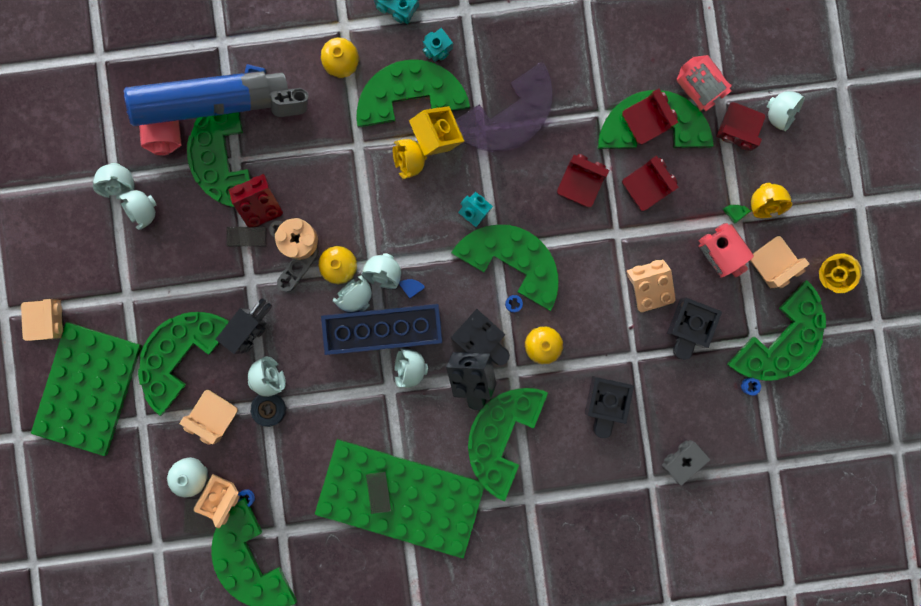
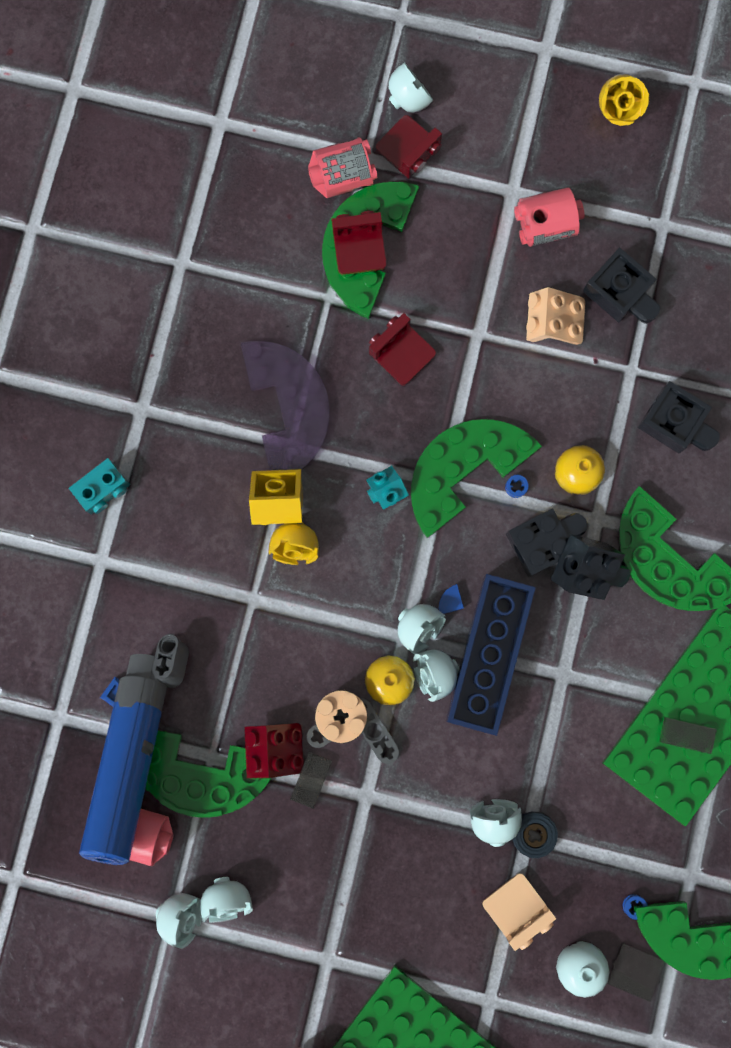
camera: 60 degrees left, 5 degrees down
(168, 347) = (412, 932): green plate -> none
(217, 500) = (627, 940): light nougat bracket -> none
(244, 328) = (425, 824): black brick -> none
(339, 57) = (138, 580): yellow cylinder -> none
(405, 82) = (200, 509): green plate -> none
(410, 368) = (550, 639): light aqua cylinder -> none
(437, 45) = (166, 452): teal brick -> none
(650, 183) = (435, 273): dark red bracket -> none
(736, 212) = (506, 189): green tile -> none
(757, 386) = (714, 256): blue bush -> none
(770, 199) = (507, 145): yellow cylinder -> none
(777, 263) = (585, 164): light nougat bracket -> none
(794, 347) = (688, 183): green plate -> none

